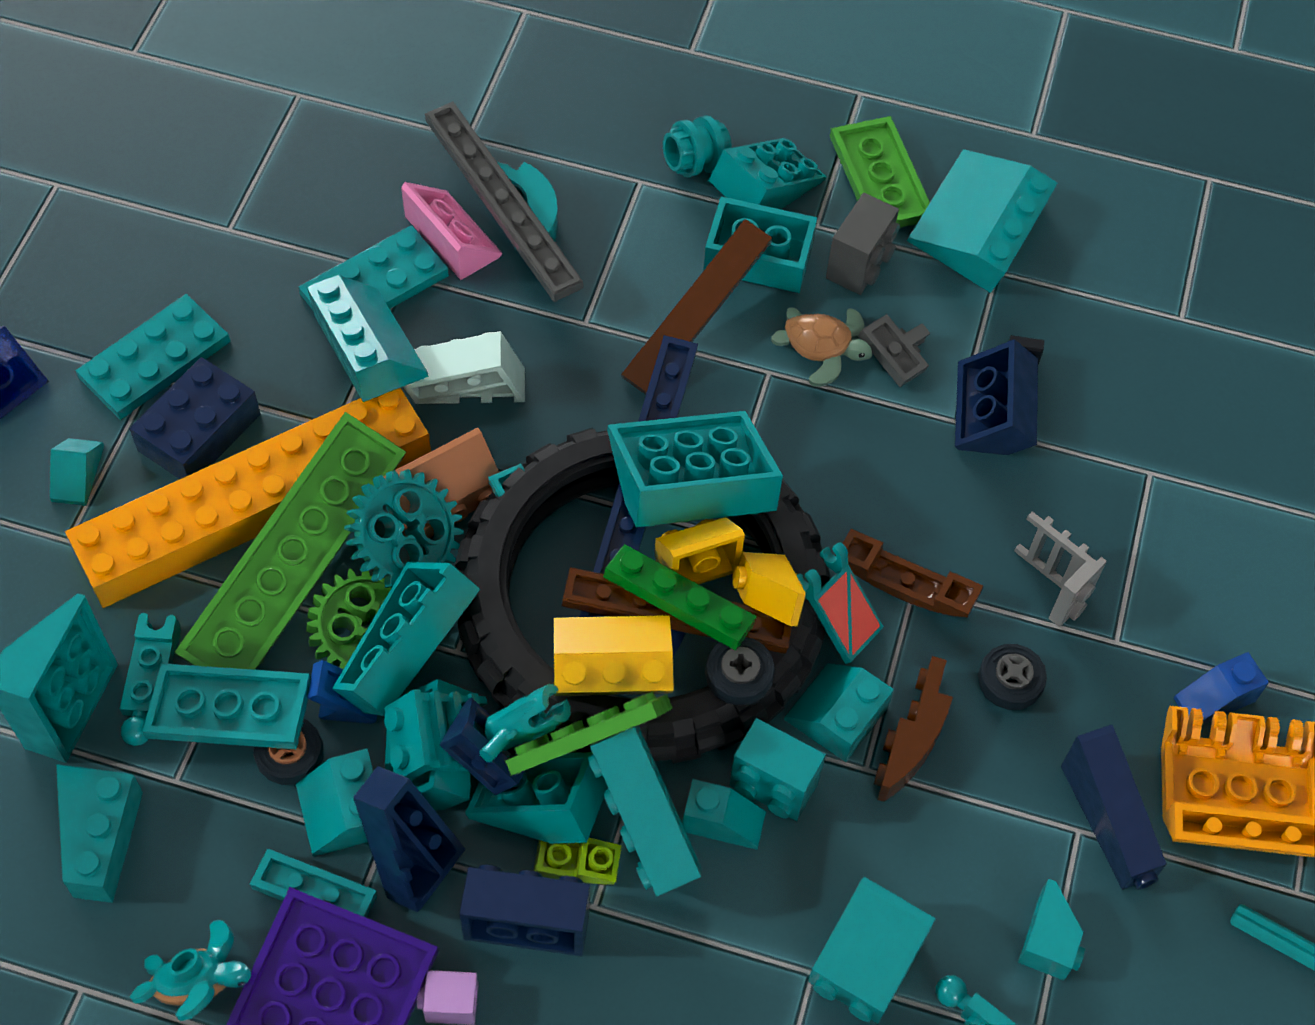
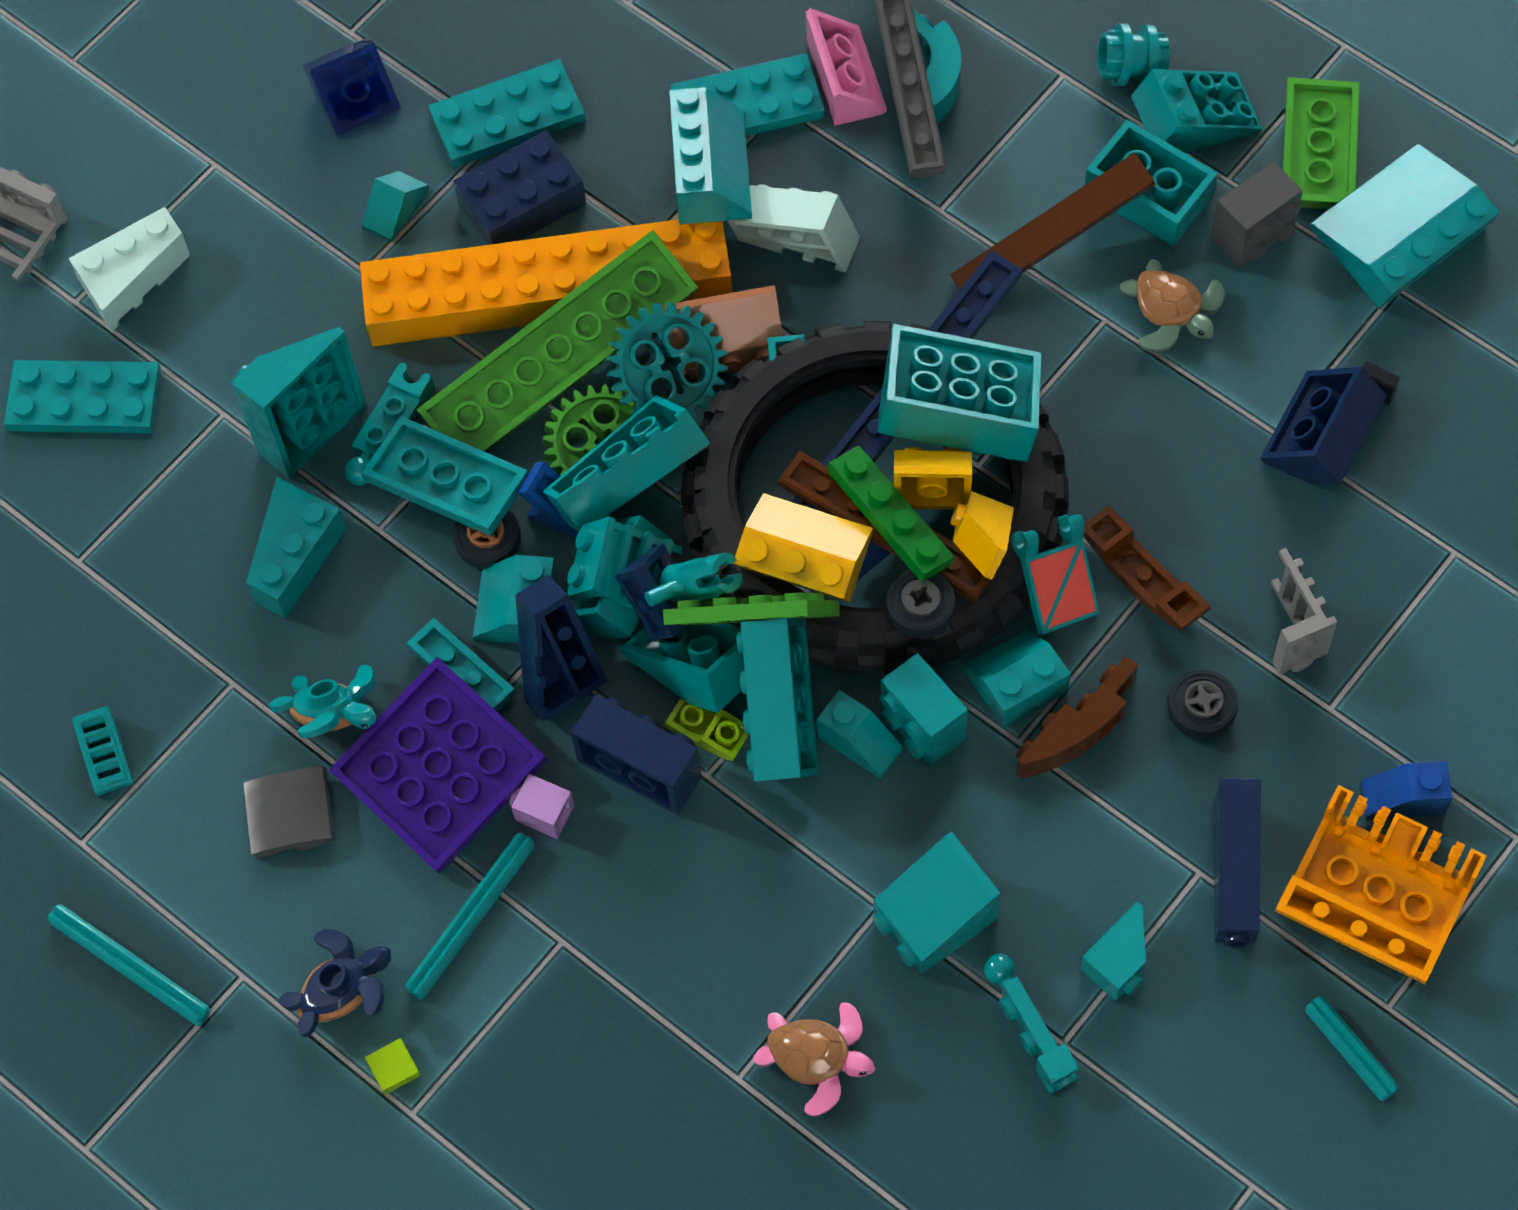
camera: 30 degrees right, 5 degrees up
(896, 349) = (1244, 337): dark grey hinge -> none

